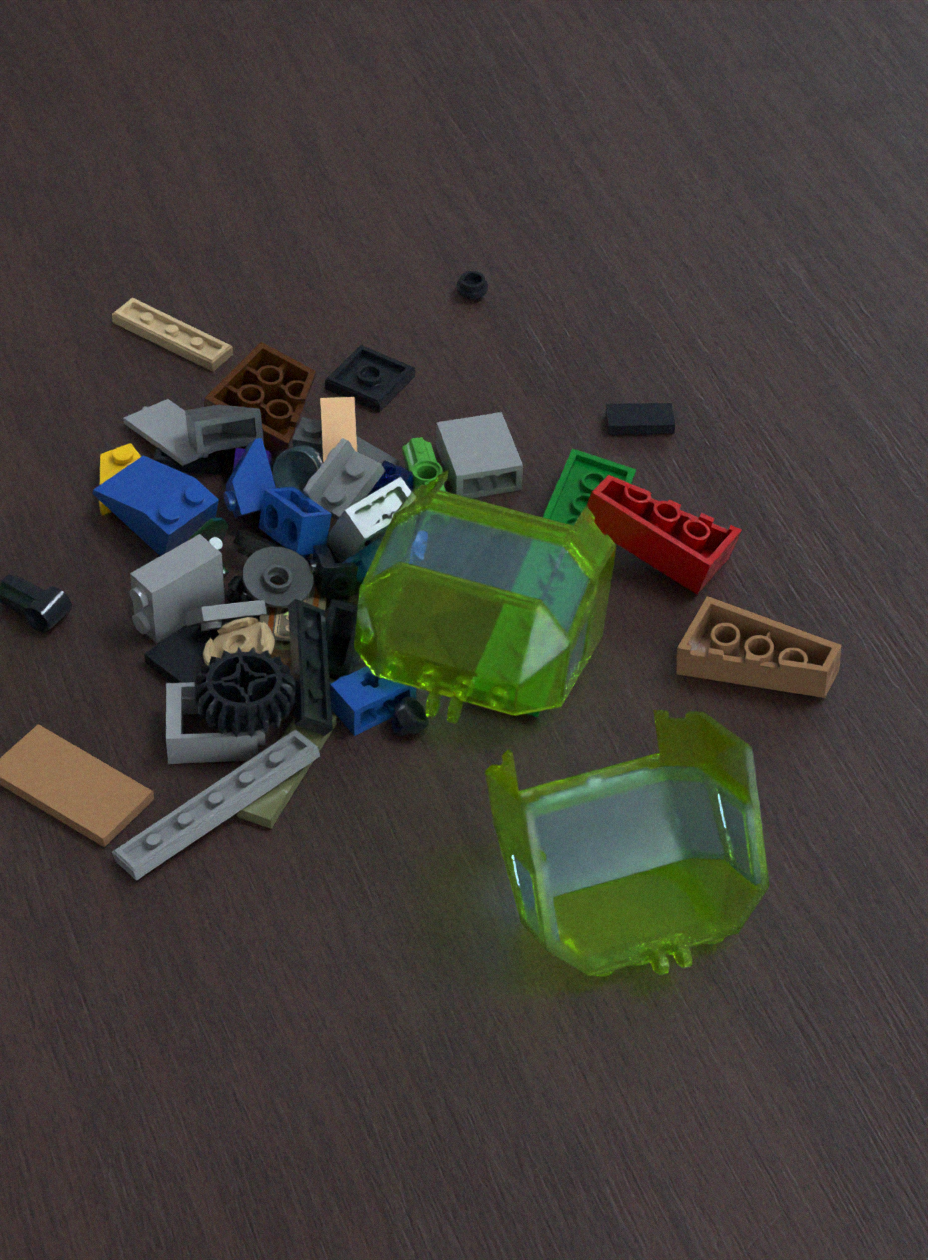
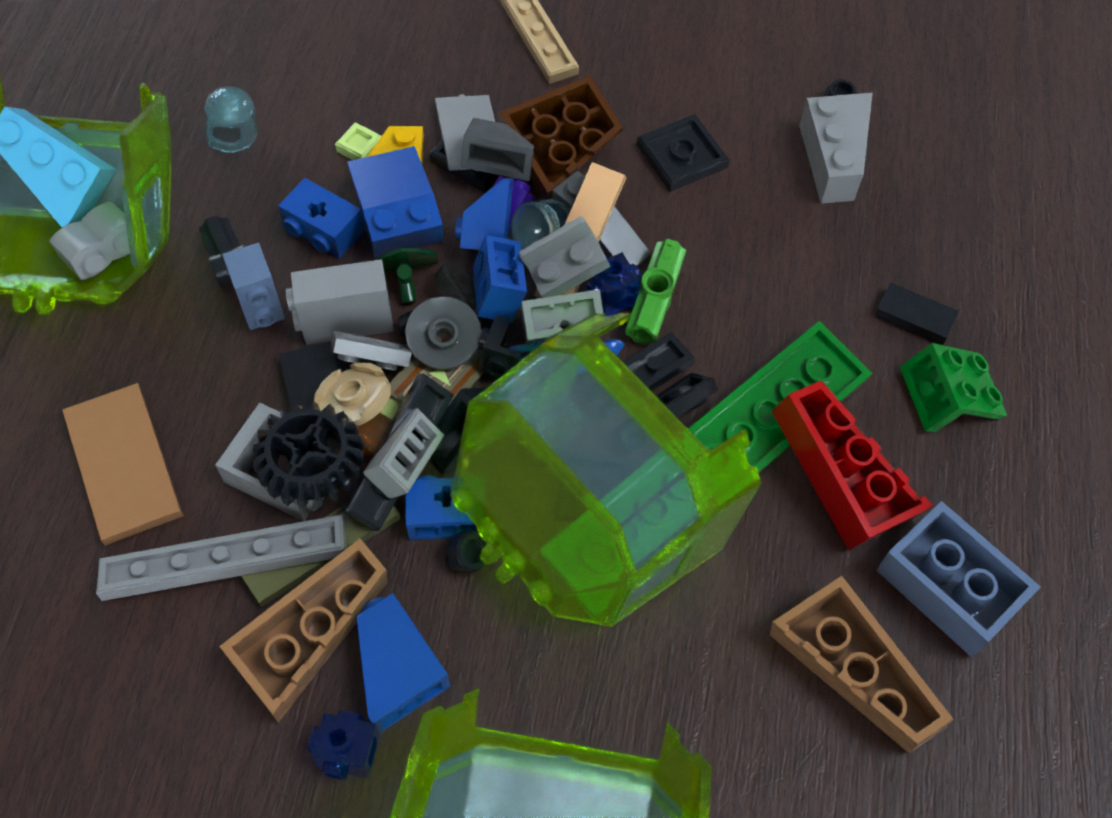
camera: 30 degrees right, 15 degrees up
(80, 479) = (357, 142): none -> yellowish green tile
(91, 608) = (254, 286): none -> sand blue brick
(99, 543) = (321, 218): none -> blue brick
(320, 669) = (387, 471): none -> light grey slope
(322, 822) = (302, 630): none -> medium nougat wedge
(412, 806) = (396, 663): none -> blue slope
(417, 868) = (344, 745): none -> clear blue brick
(479, 456) = (725, 285): light grey brick -> none
(496, 321) = (836, 143): none -> light grey wedge
(698, 455) = (950, 384): none -> green bracket
(787, 571) = (957, 578): none -> sand blue brick

